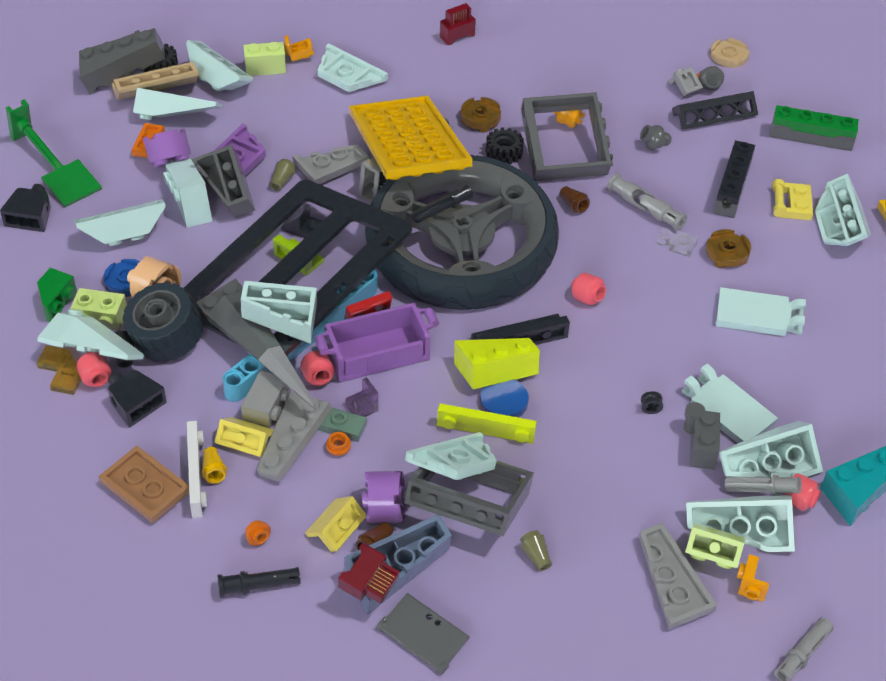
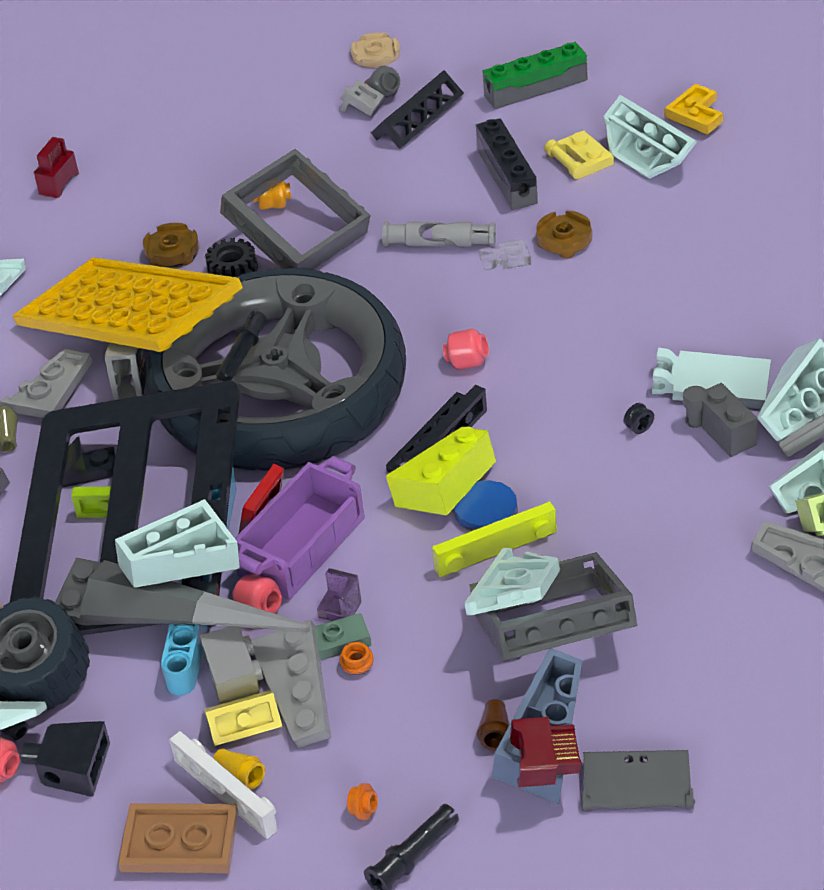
camera: 30 degrees left, 5 degrees down
(337, 522) = (435, 734): light yellow panel -> none
(384, 497) = (469, 672): medium lavender brick -> none
(536, 549) = (667, 625): olive cone -> none
(575, 199) = (362, 272): reddish brown cone -> none
(655, 137) = (383, 167): dark grey animal -> none
(759, 312) = (653, 275): light aqua tile -> none

